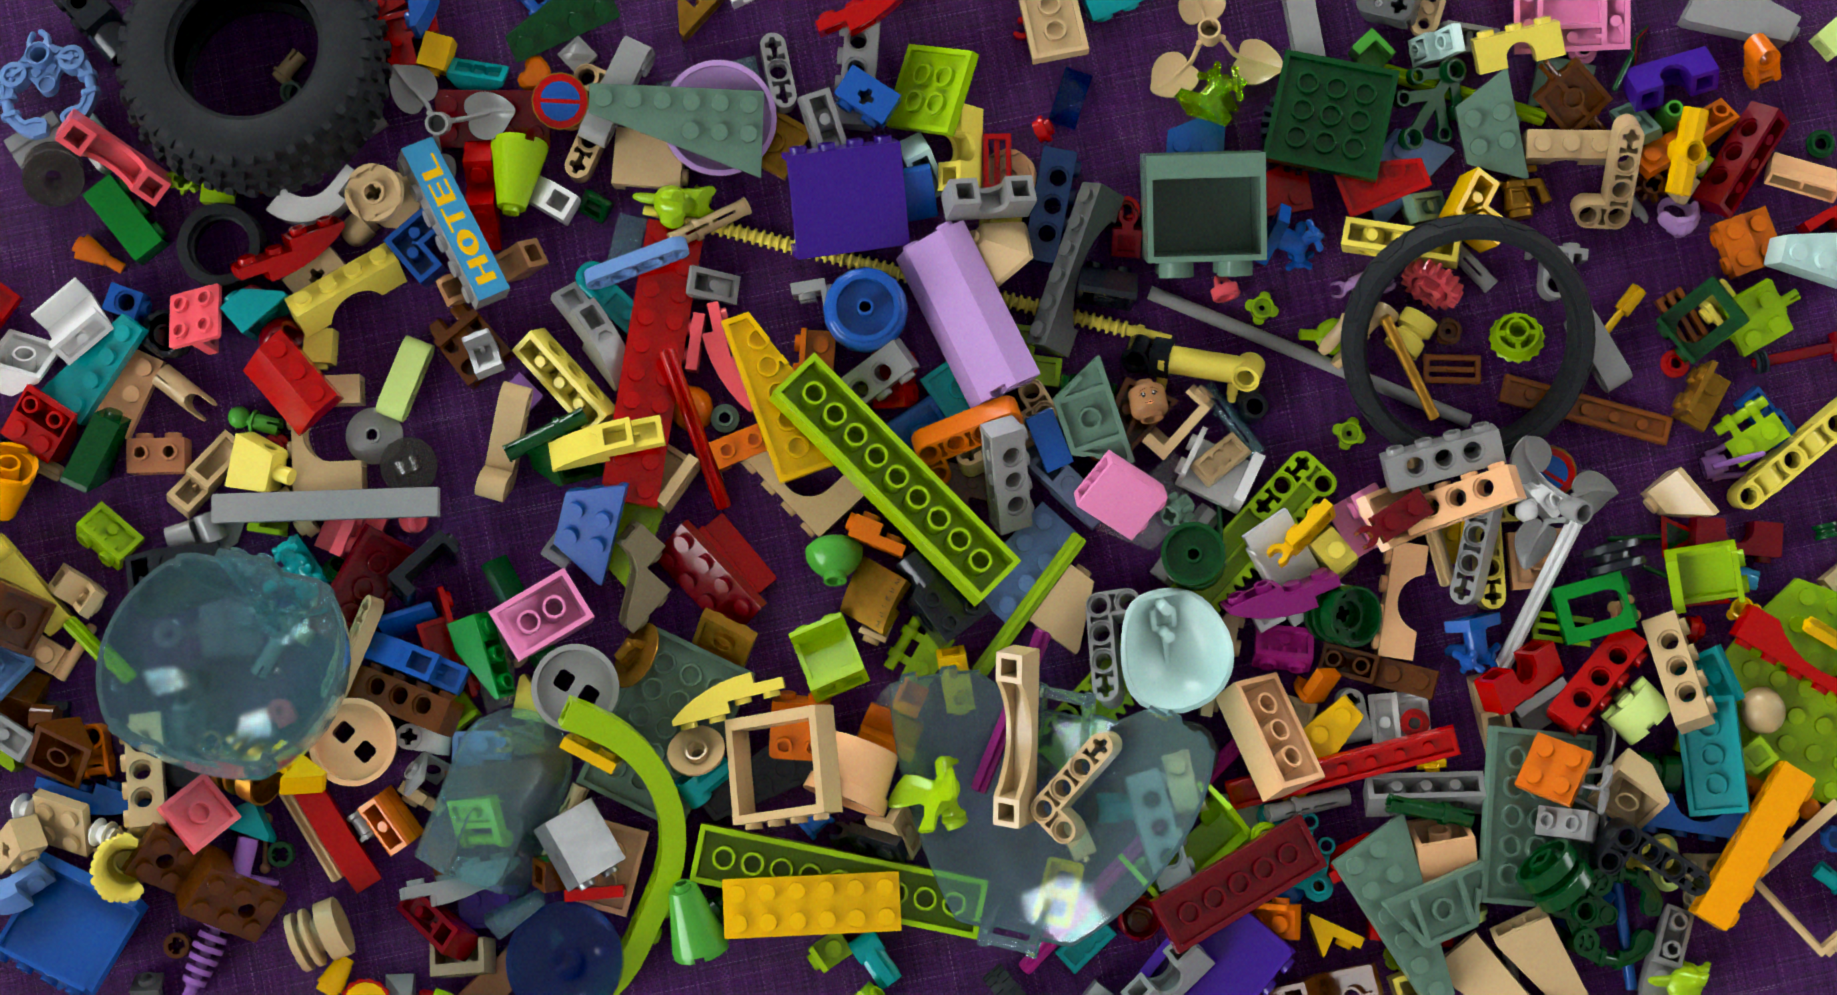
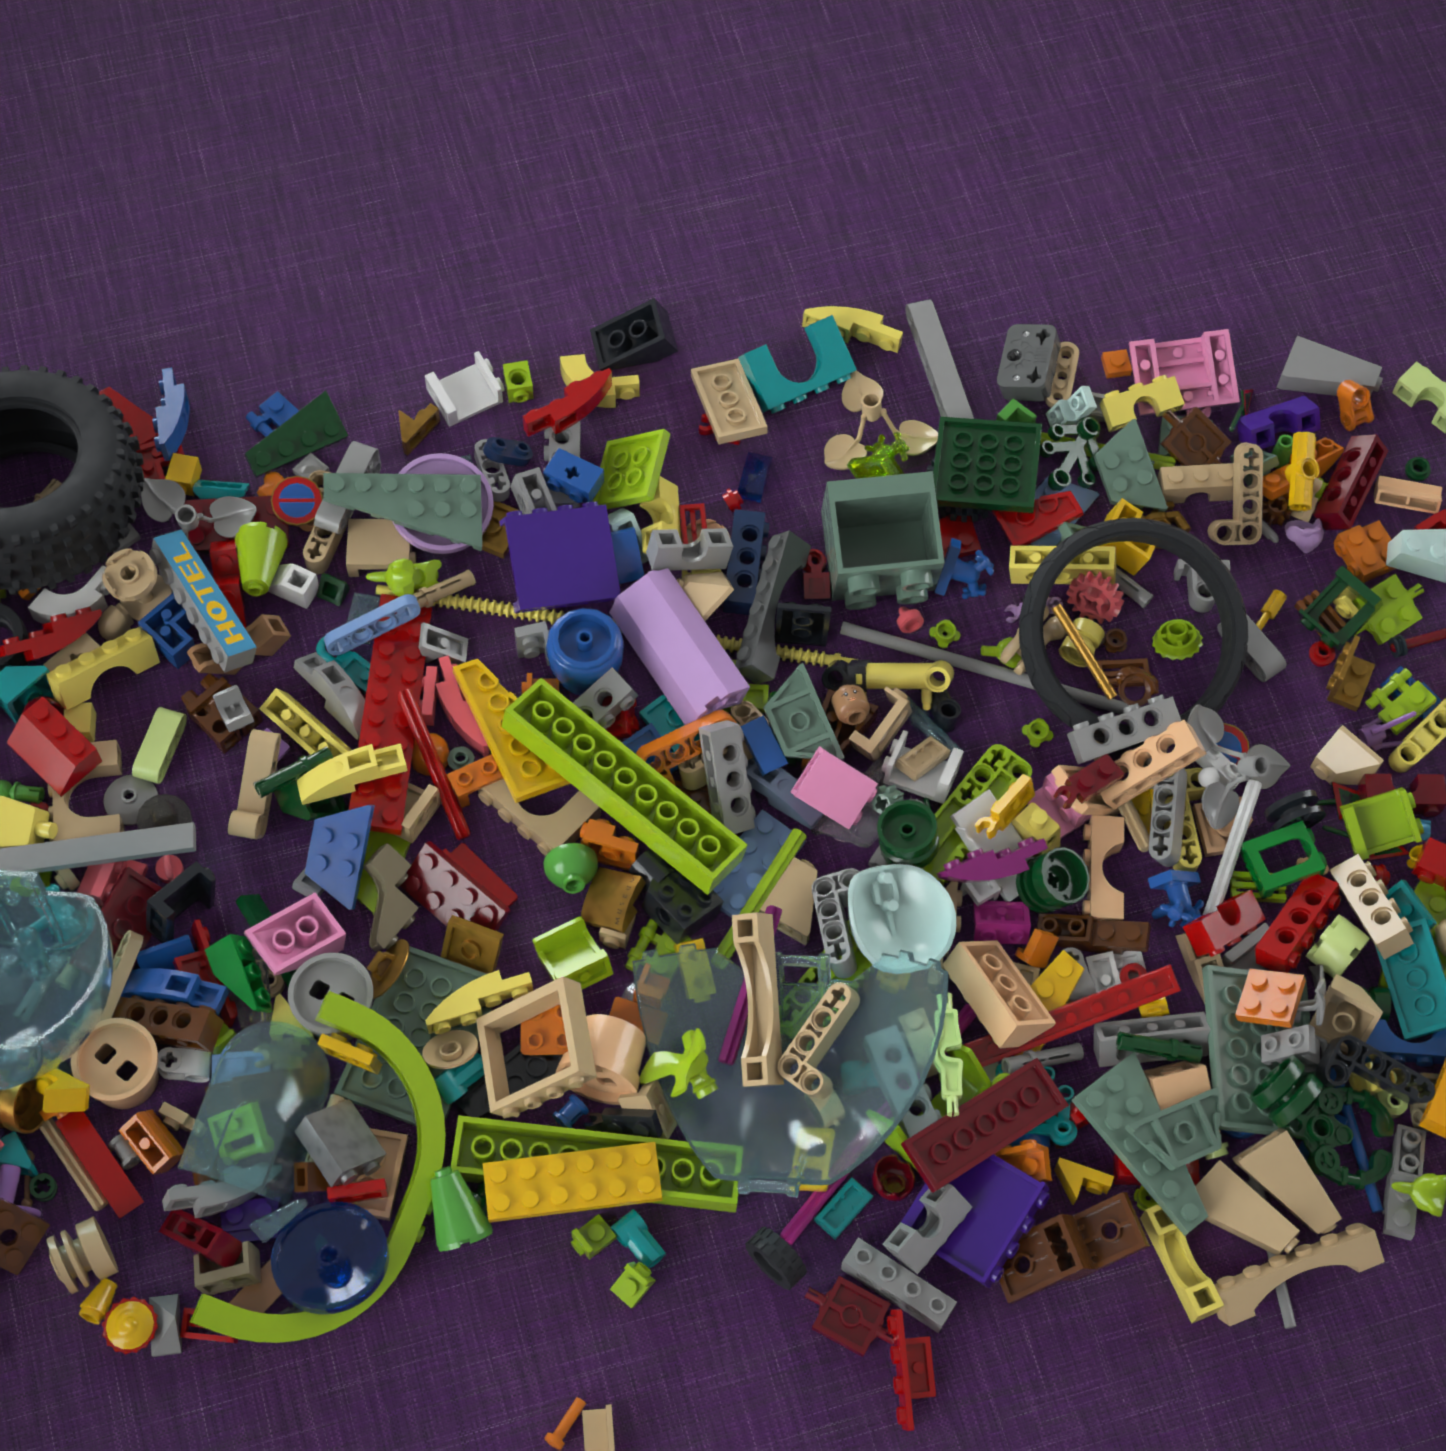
camera: 10 degrees left, 20 degrees down
(416, 772) = (177, 1090): light grey bracket -> none
(802, 52) = (507, 451): none -> dark blue plate
(1210, 826) = (949, 1067): none -> yellowish green piece
(1477, 404) = (1150, 683): none -> reddish brown piece
(1591, 411) = (1254, 699): dark orange tile -> none

